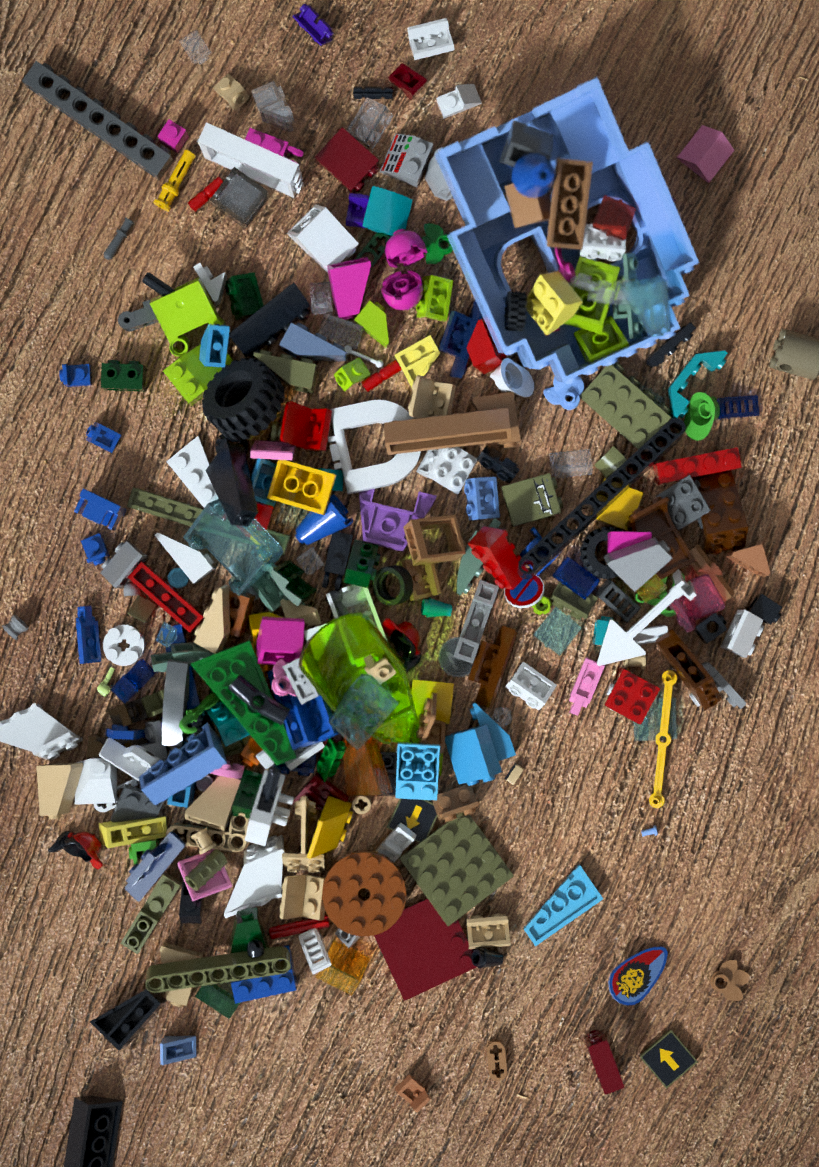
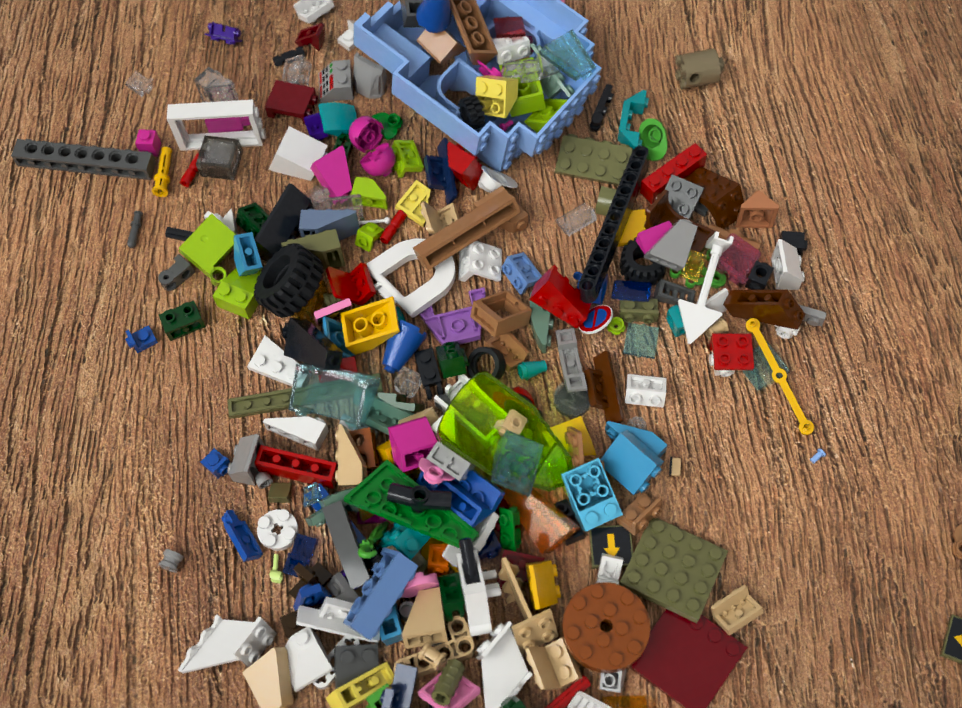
camera: 20 degrees left, 25 degrees down
(99, 509) = (210, 420): blue panel -> none
(102, 437) = (184, 372): blue bracket -> none
(153, 703) = (329, 563): olive panel -> none
(177, 578) = (301, 448): medium azure tile -> none
(232, 92) = (180, 96): tan bracket -> none
(357, 809) = (559, 550): tan bush -> none
(486, 958) = (747, 635): black cone -> none
(490, 460) = (517, 244): black hinge -> none
(532, 499) = (563, 250): olive brick -> none
(558, 394) = (542, 173): light blue plate -> none
(567, 903) = (787, 554): medium azure wing -> none
(585, 685) = (689, 367): bright pink hinge -> none
(603, 1061) = (914, 671): dark red window -> none
(637, 975) = (890, 579): shield -> none
(721, 401) = (676, 131): clear blue slope -> none

